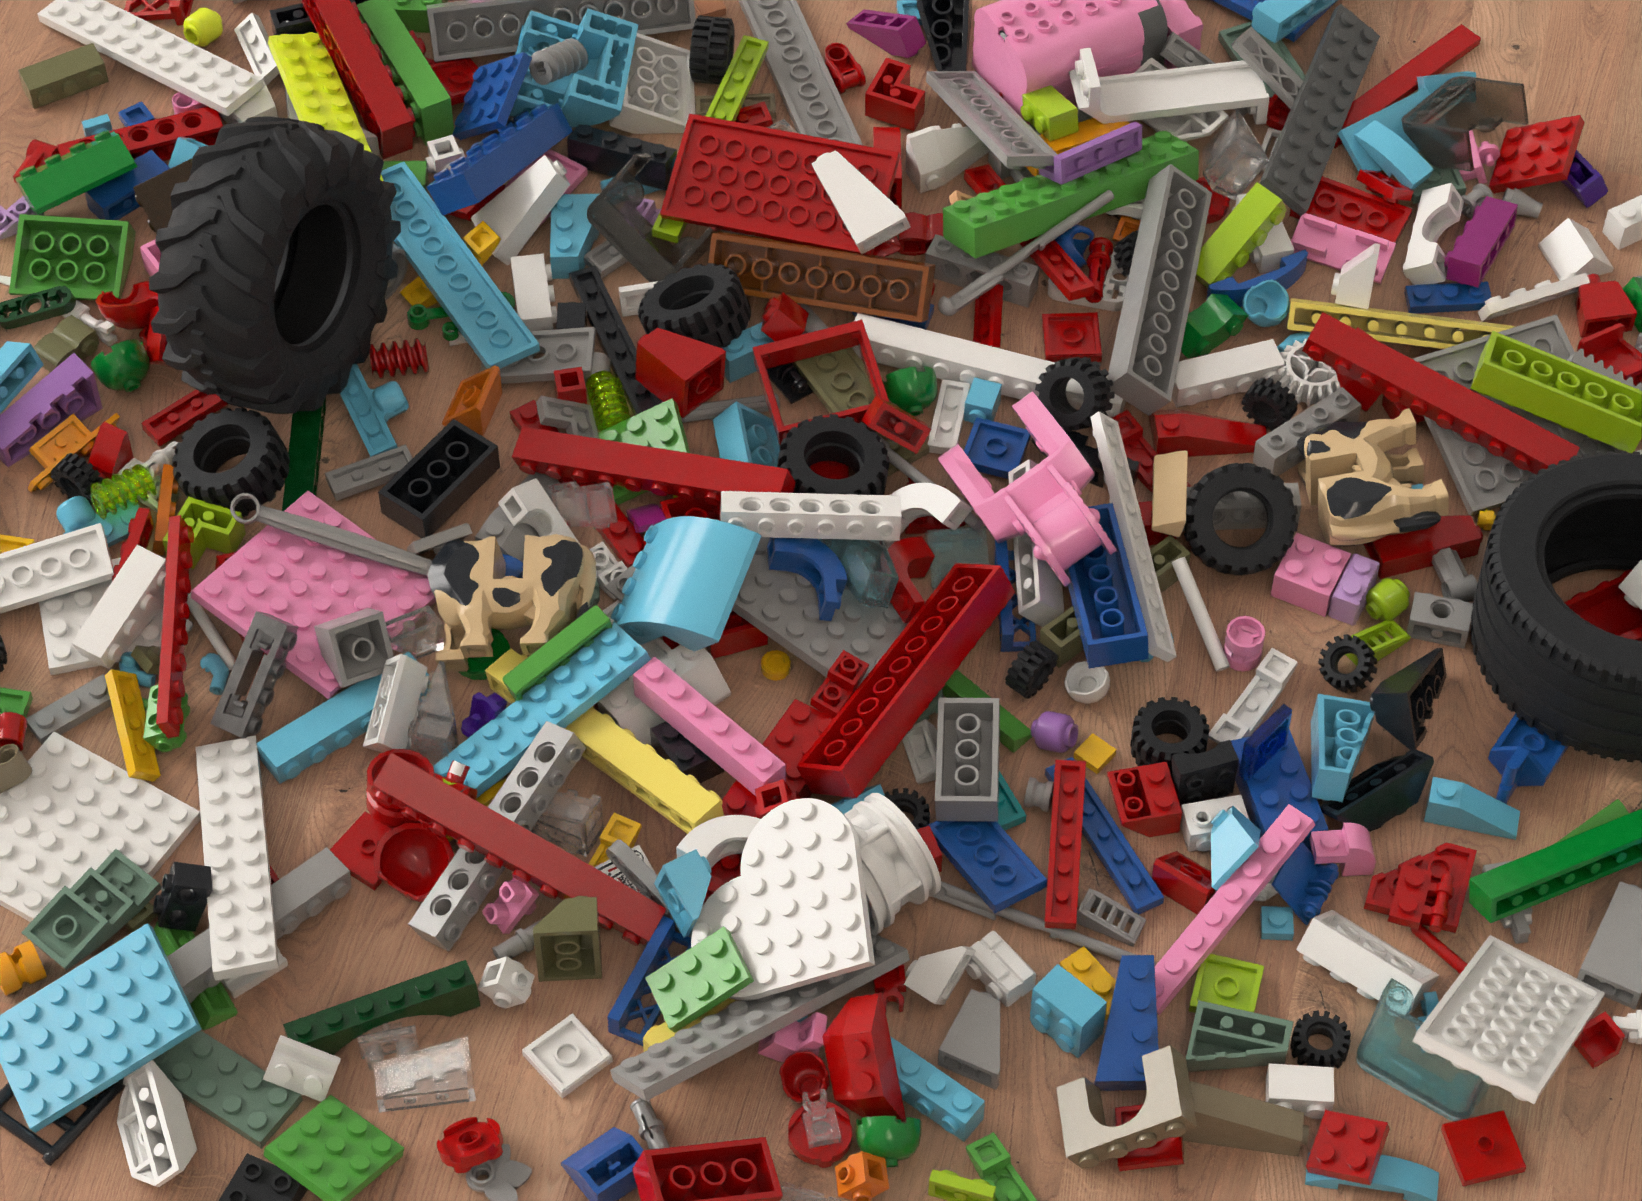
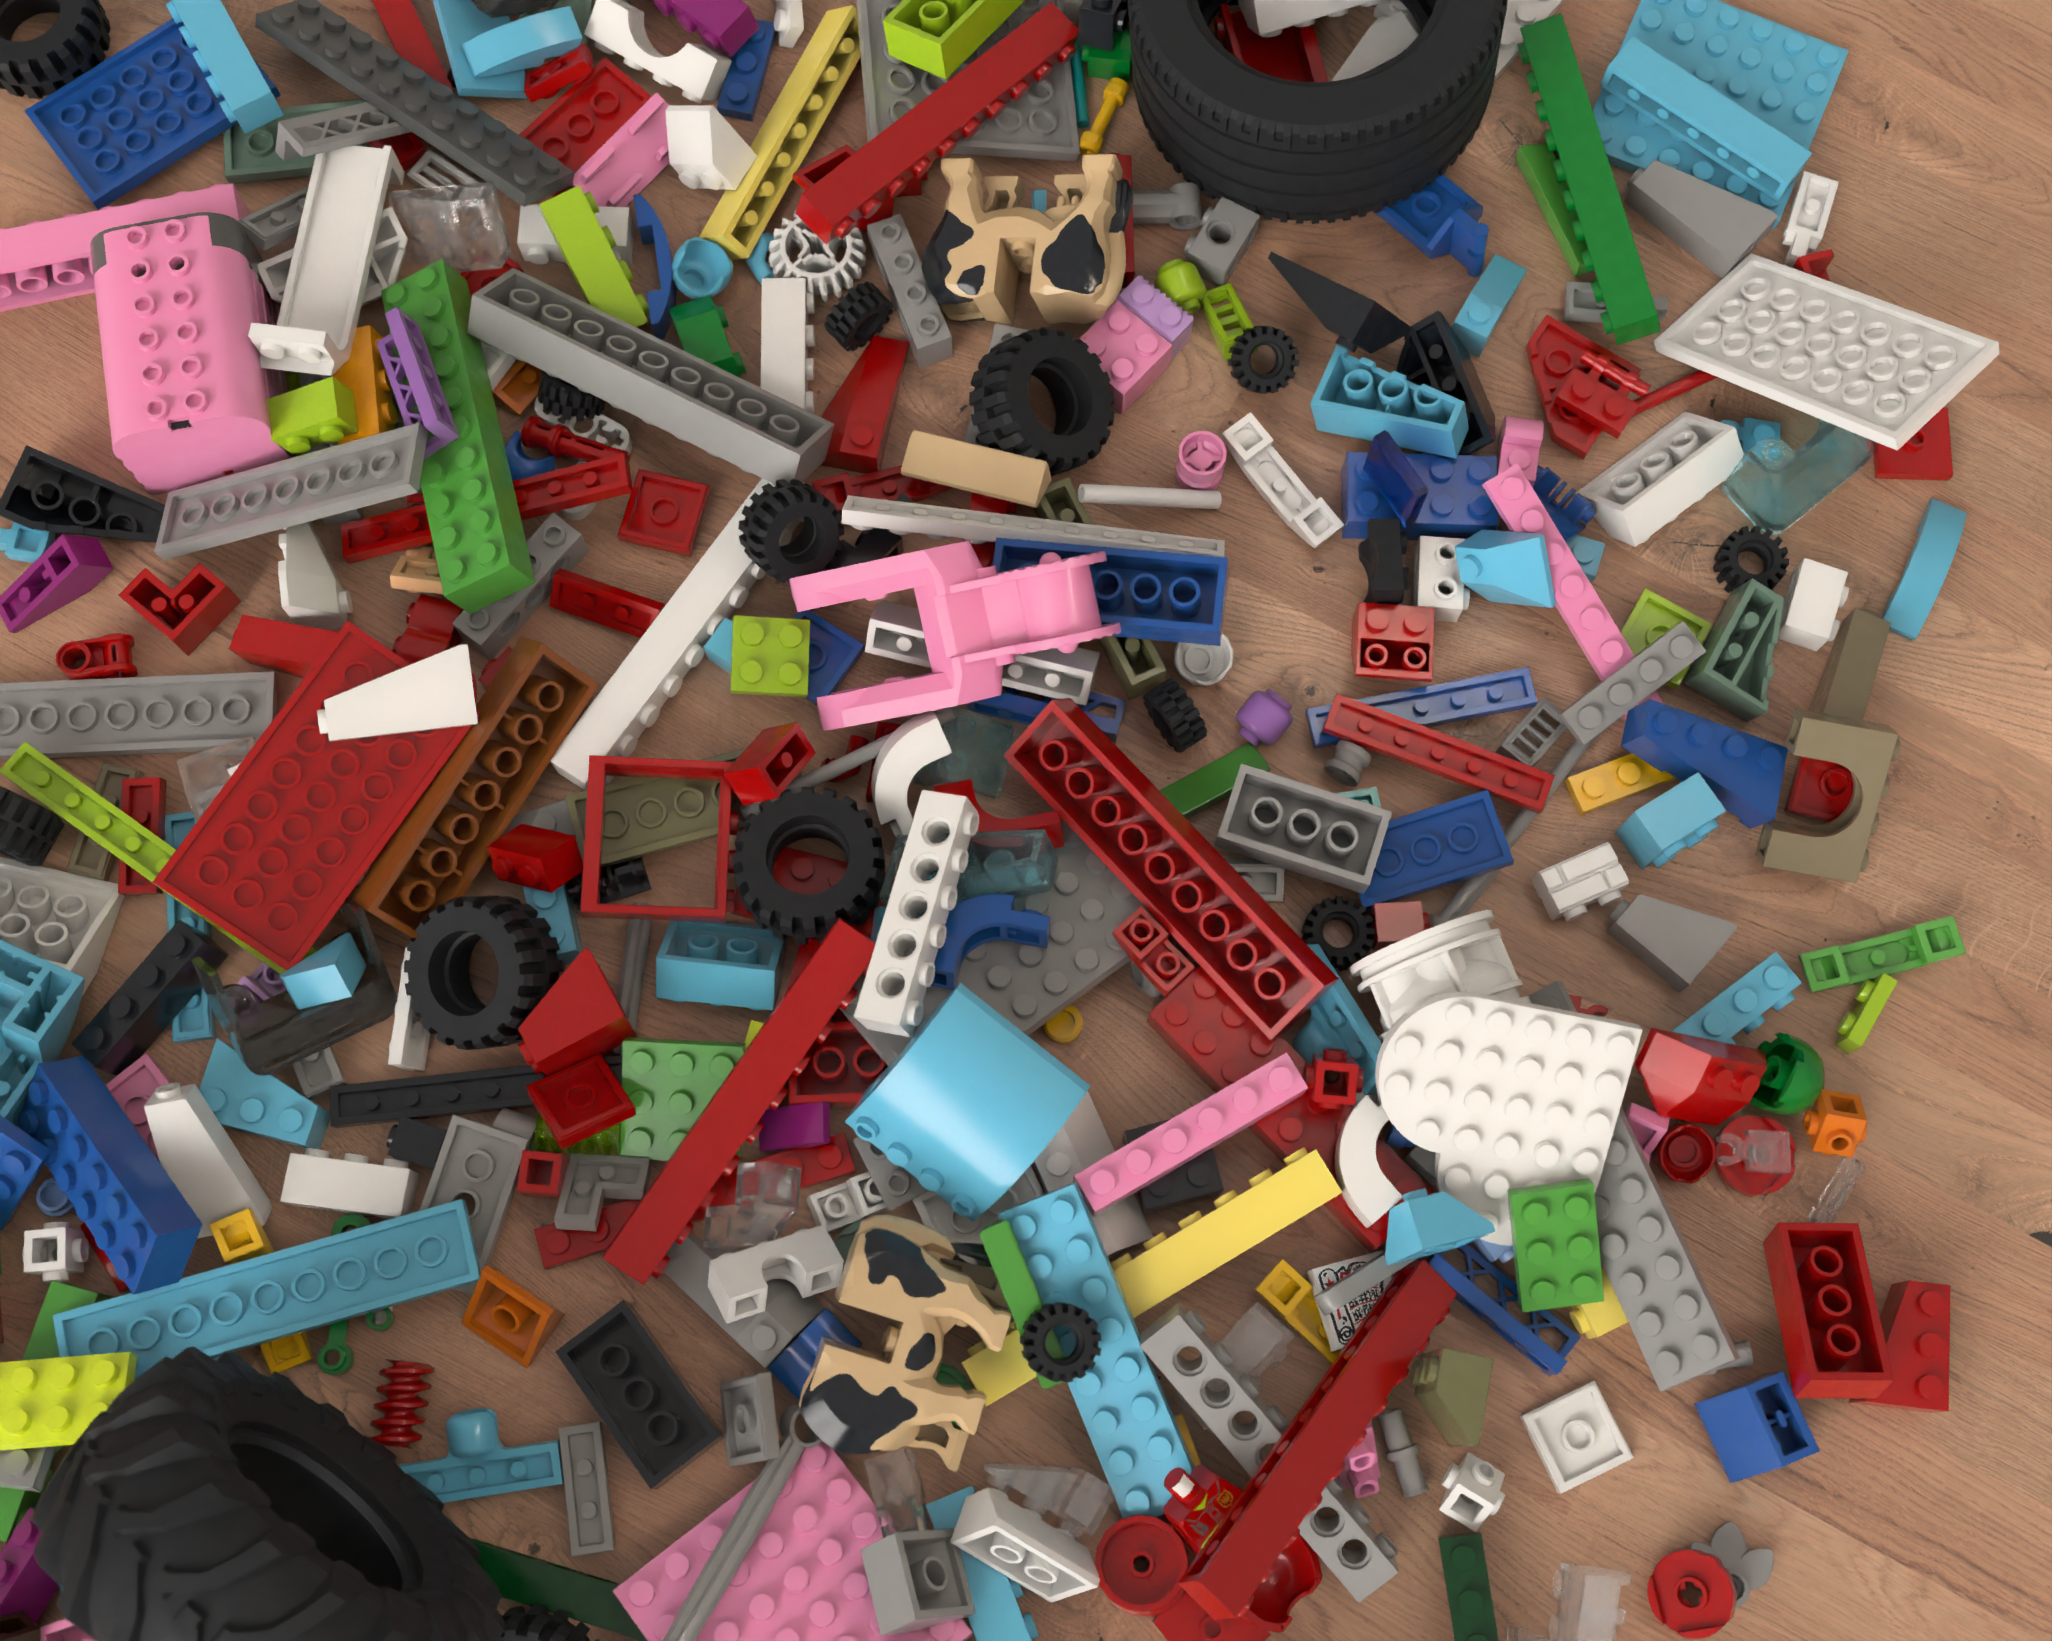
camera: 75 degrees left, 20 degrees up
(482, 711) = (1065, 1427): dark purple hips -> none
(535, 655) = (1086, 1342): none -> black tyre
(624, 388) = (581, 1100): none -> red plate
(667, 234) = (326, 974): none -> medium azure slope
(911, 389) = (694, 729): green cylinder -> none
(938, 973) = (1580, 952): white slope -> none
(948, 416) = (712, 685): white plate -> none
(951, 305) = (583, 637): light grey bar -> none
(981, 415) = (770, 656): none -> lime plate
(1095, 752) = (1298, 682): yellow tile -> none
(1168, 718) = (1315, 561): black tyre -> none
(1173, 959) = (1632, 683): none -> light grey plate
(1183, 881) = (1506, 634): red slope -> none
(1347, 1147) = (1904, 577): red plate -> none

